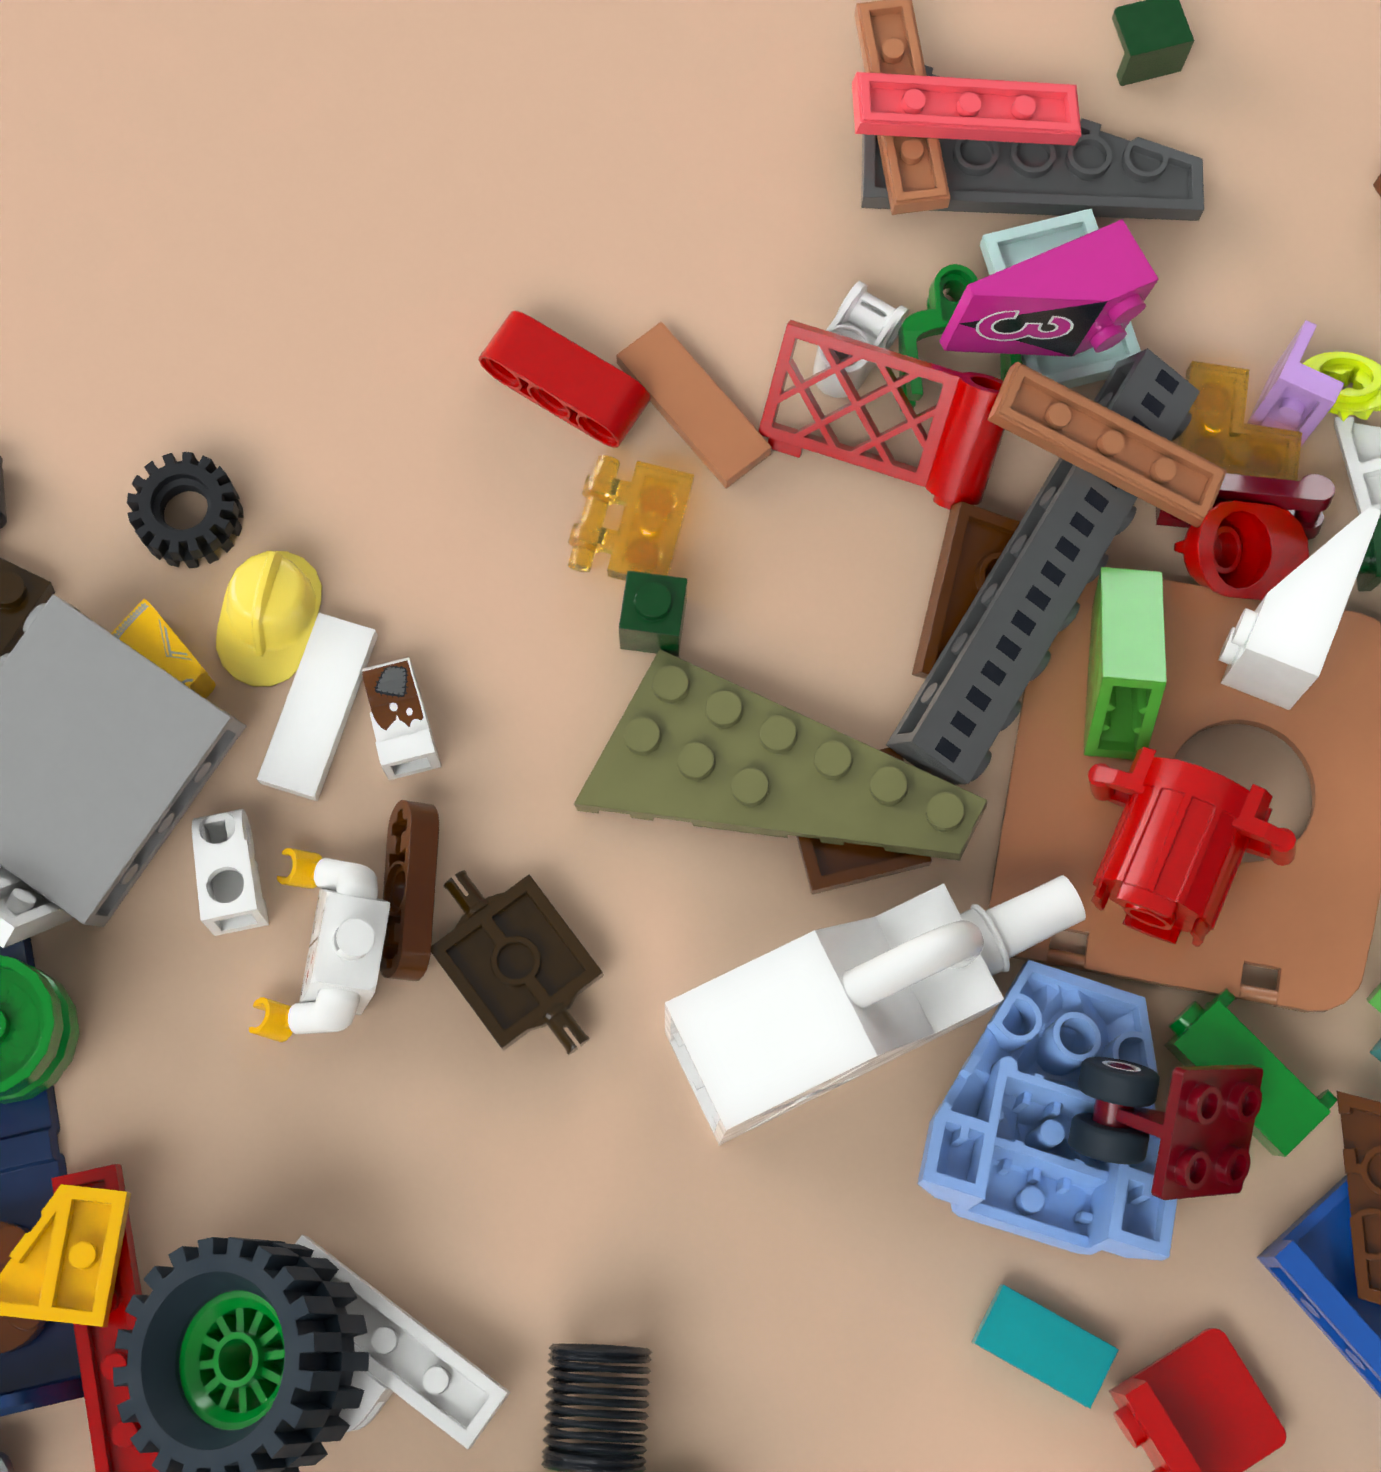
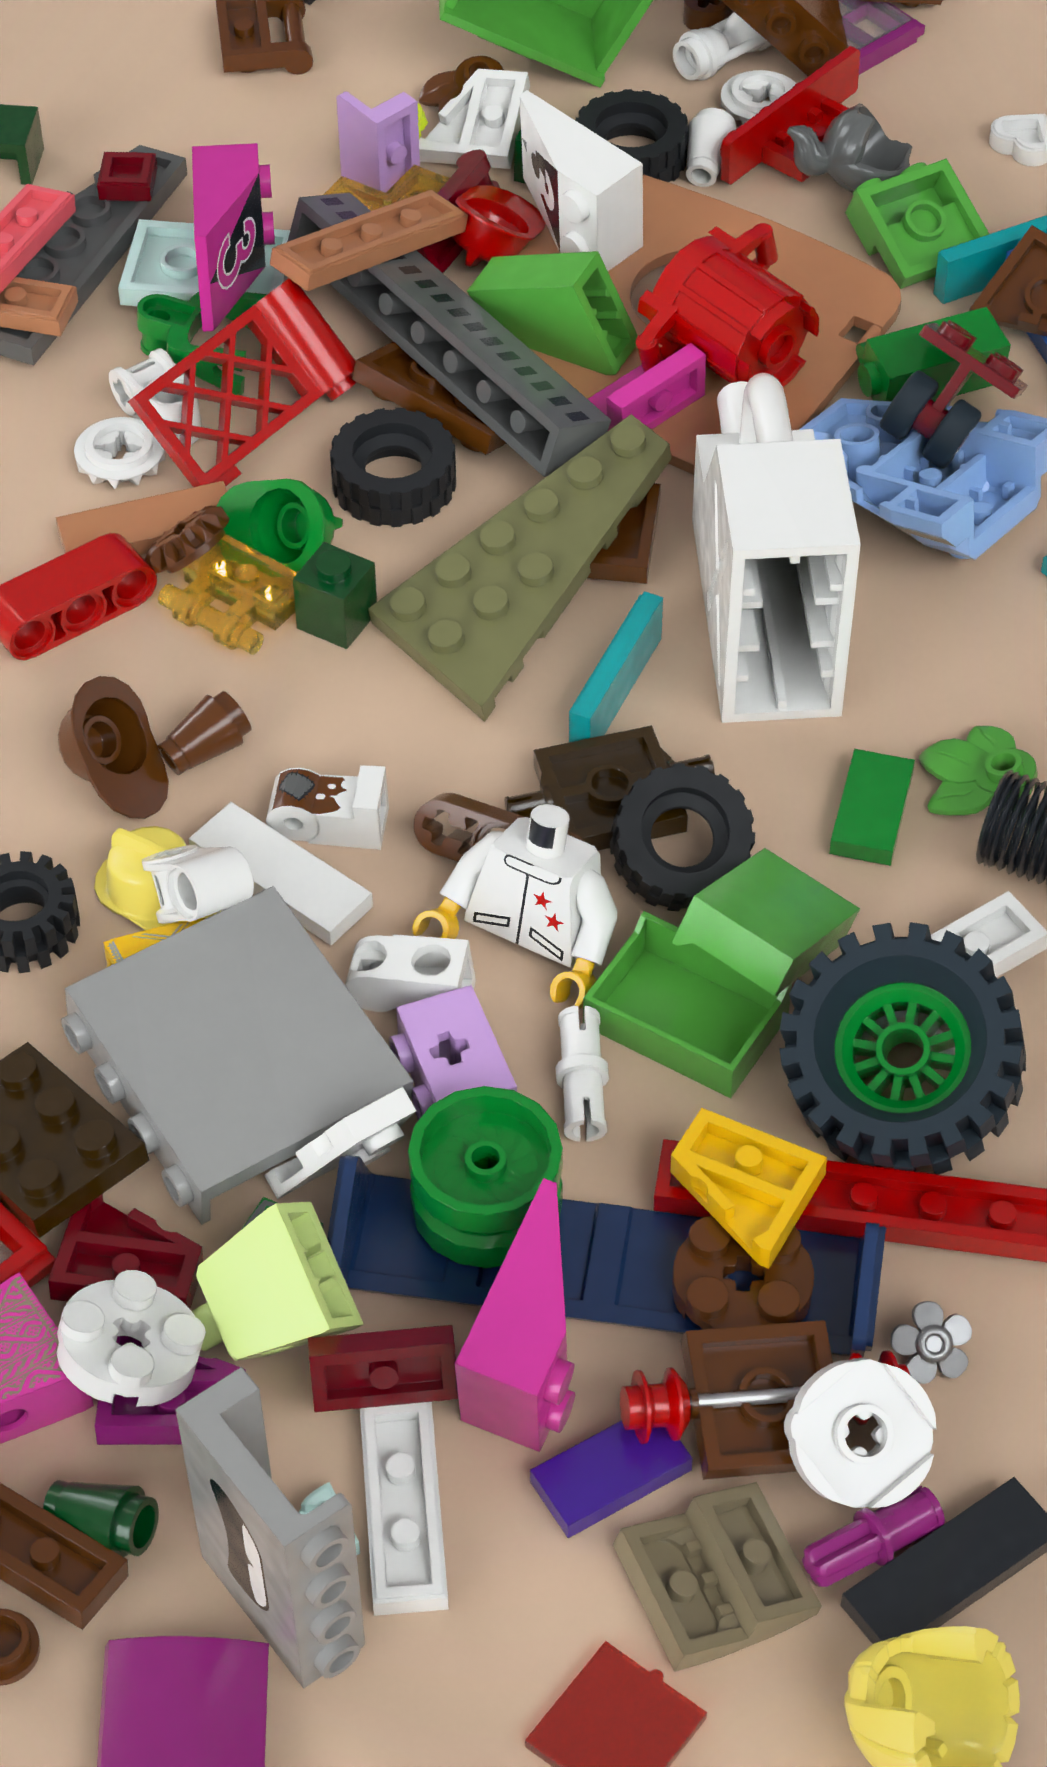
camera: 65 degrees left, 25 degrees down
(171, 942) = (448, 1047): none -> lavender brick
(175, 1062) = (582, 1074): none -> white pin
(213, 645) = (198, 881): none -> white piece
(284, 1128) = (685, 1008): none -> bright green container
(374, 1174) = (766, 921): none -> bright green container
(379, 508) = (112, 746): none -> reddish brown piece
(413, 1062) = (672, 789): none -> black tyre
(447, 572) = (205, 733): none -> reddish brown cone
(599, 1217) = (872, 807): none -> green tile
(659, 453) = (188, 540): none -> reddish brown gear
(661, 912) = (617, 669): none -> teal tile
(683, 1297) = (973, 769): none -> bright green plate
(719, 527) = (280, 519): none -> green piece
(750, 329) = (104, 439): none -> white gear
(864, 549) = (393, 499): none -> black tyre
(1053, 796) = (657, 392): none -> dark pink panel
(1140, 170) = (127, 176): none -> dark red tile

